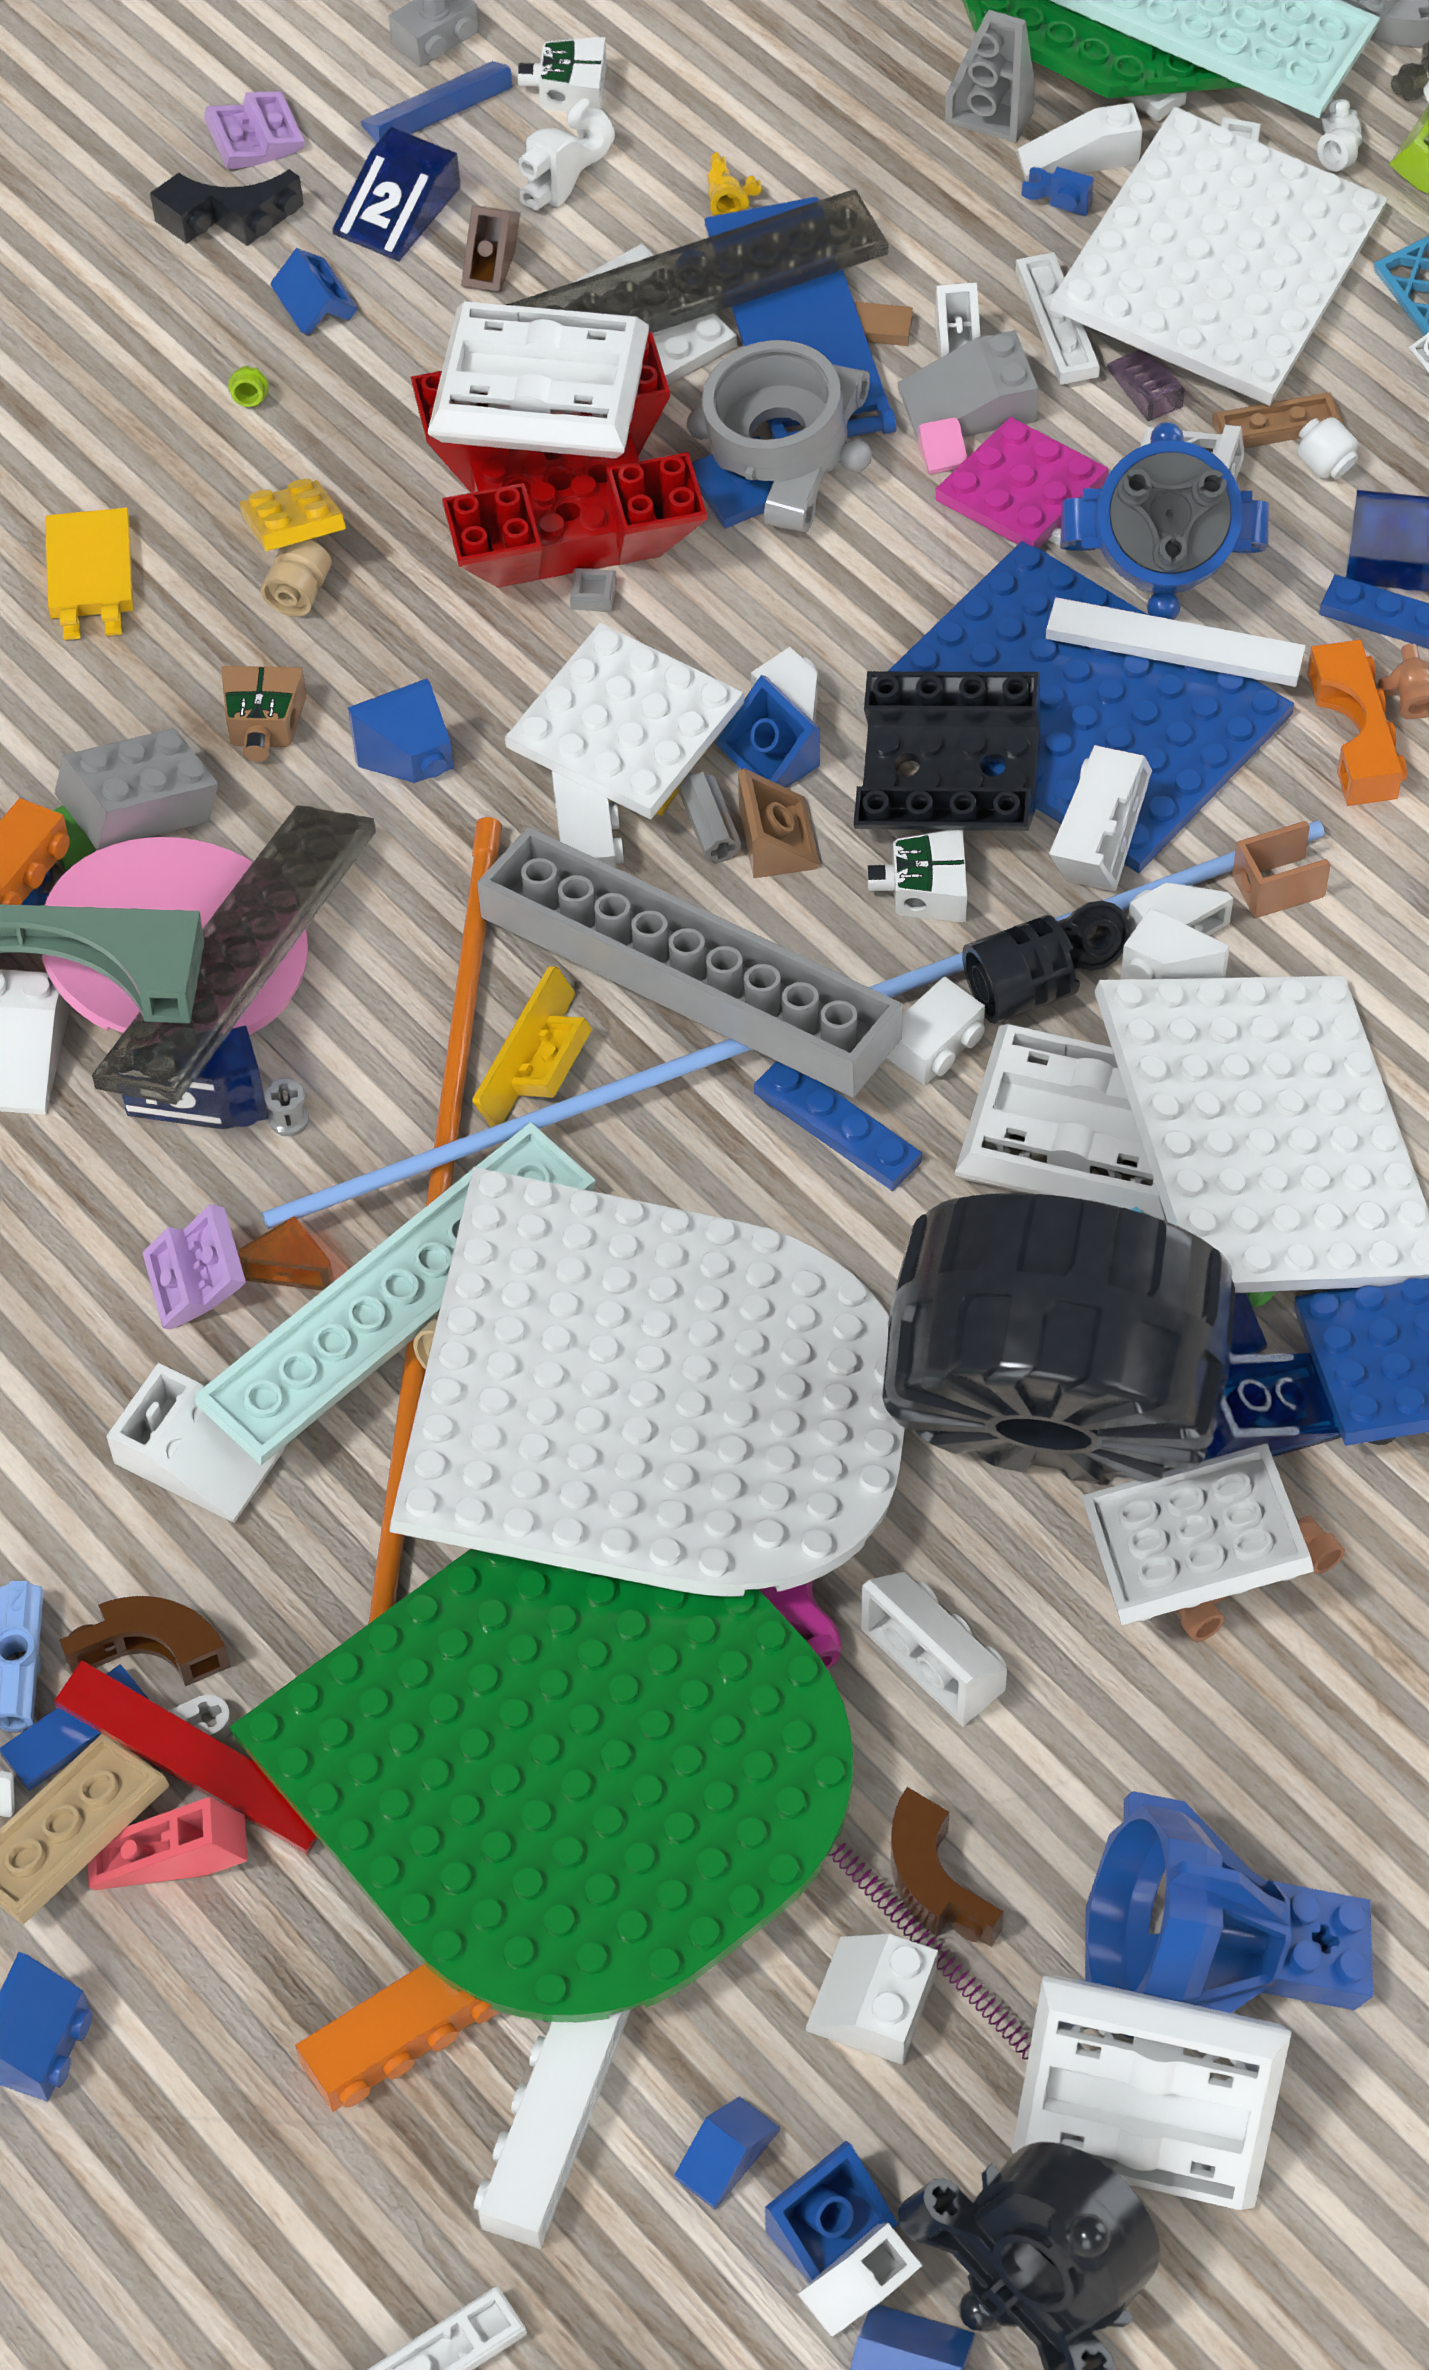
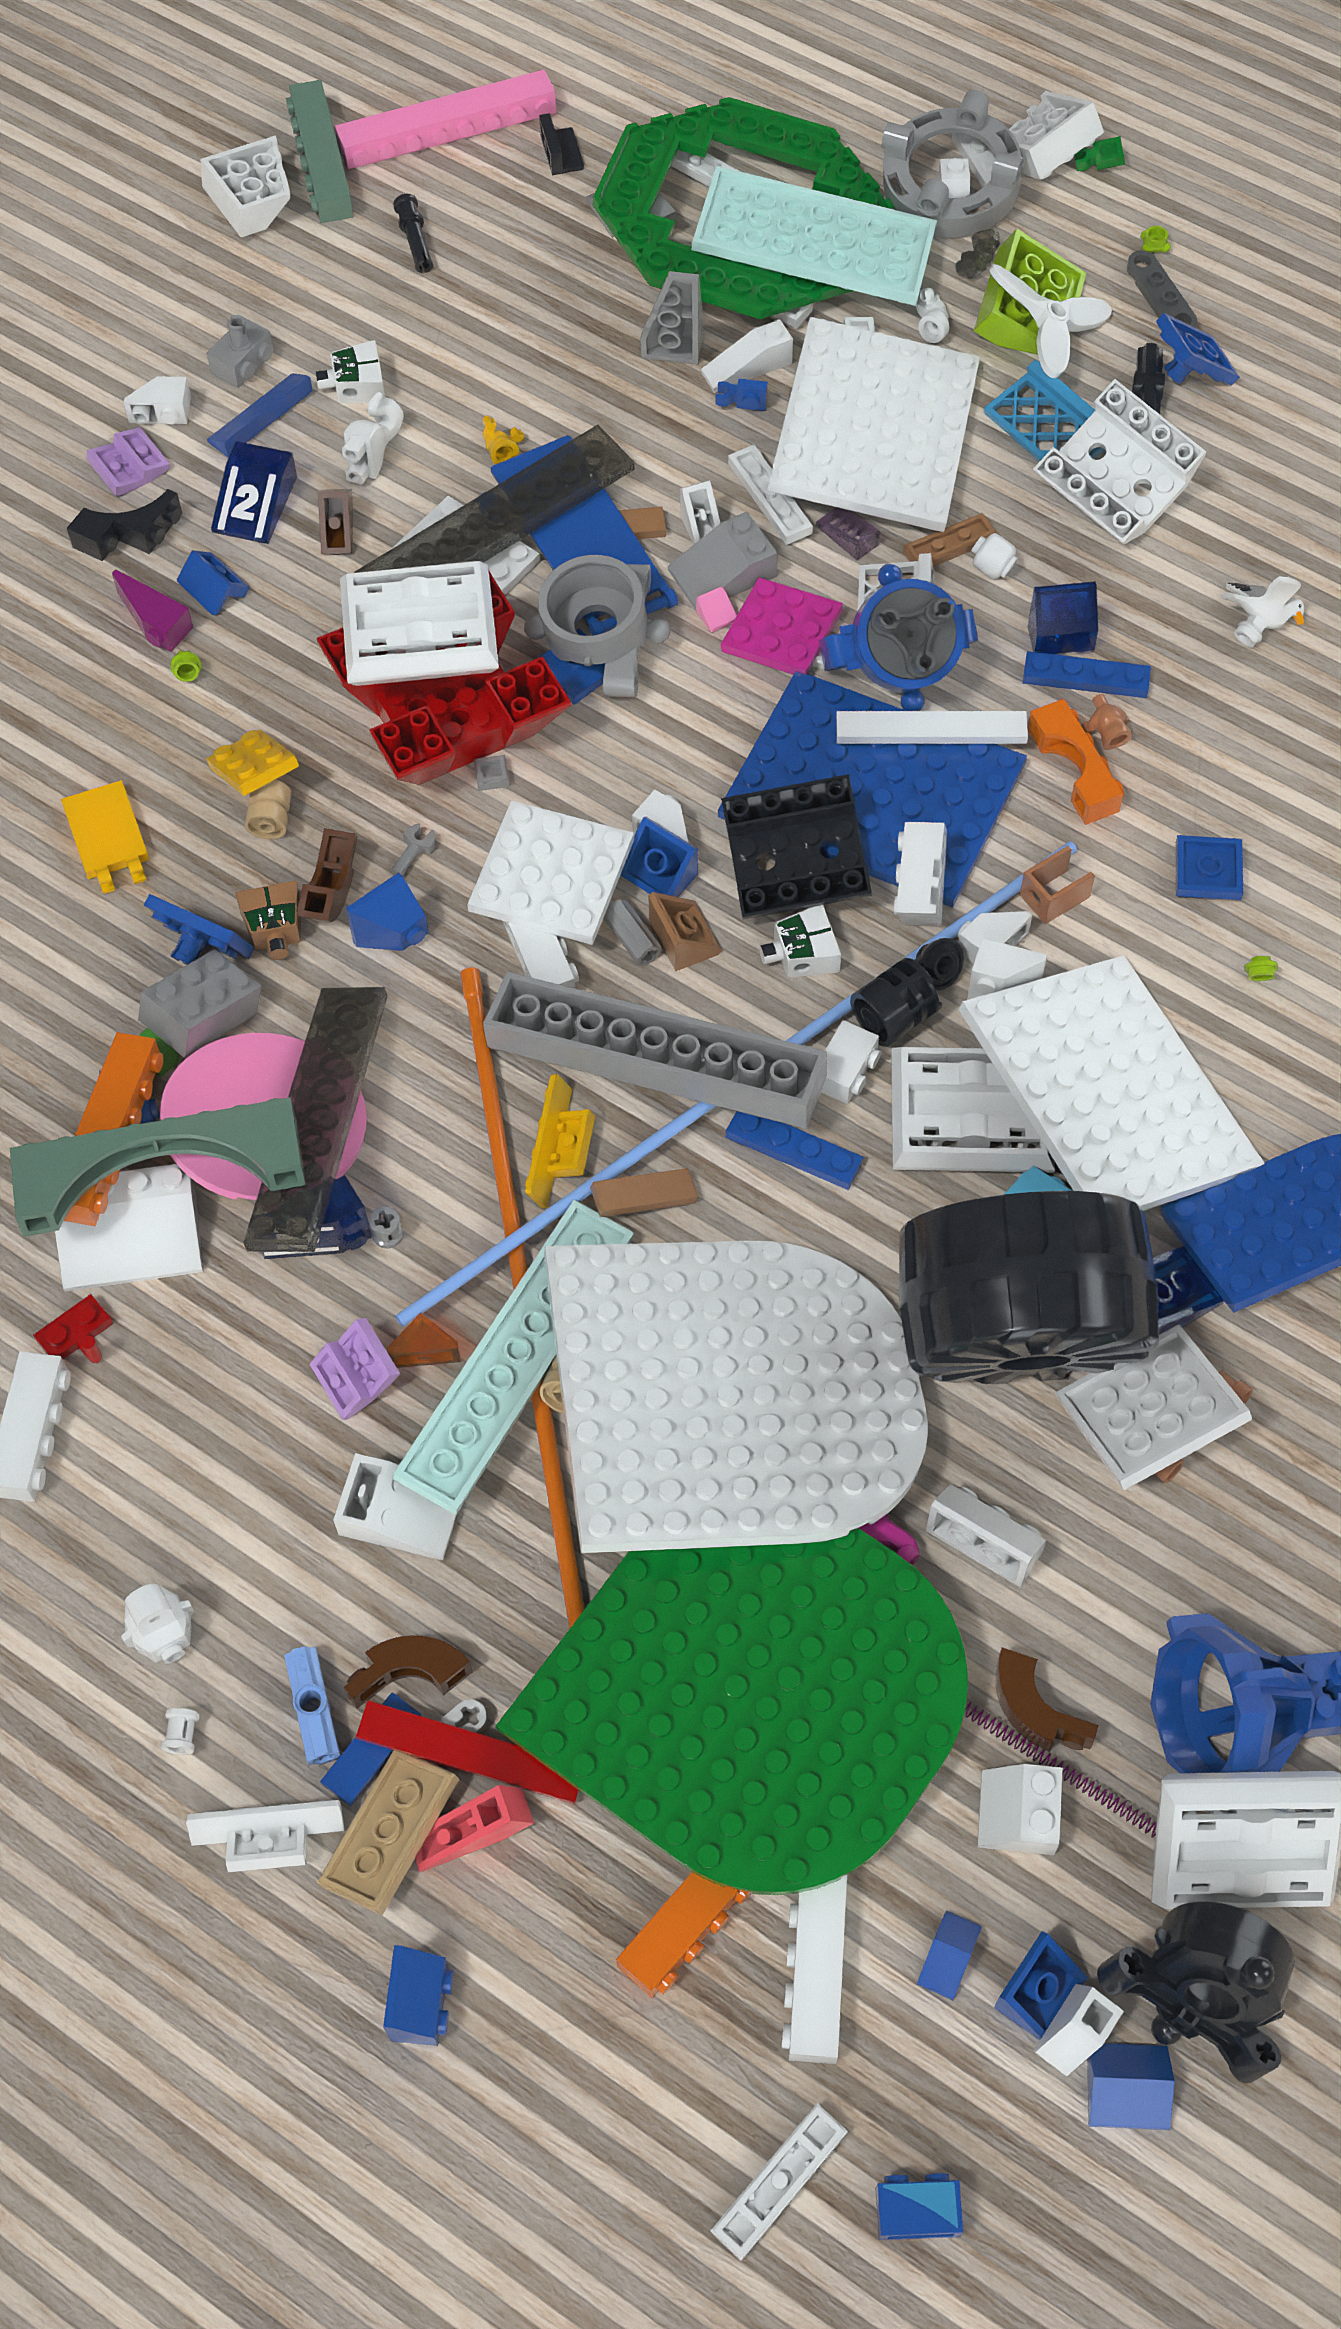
camera: 15 degrees left, 5 degrees up
(159, 704) = (196, 932): none -> blue plate
(233, 321) = (158, 616): none -> magenta slope
(314, 65) = (160, 402): none -> white slope
(348, 676) = (332, 878): none -> reddish brown arch
(467, 660) = (414, 848): none -> light grey bar
(624, 1134) = (644, 1192): none -> medium nougat tile

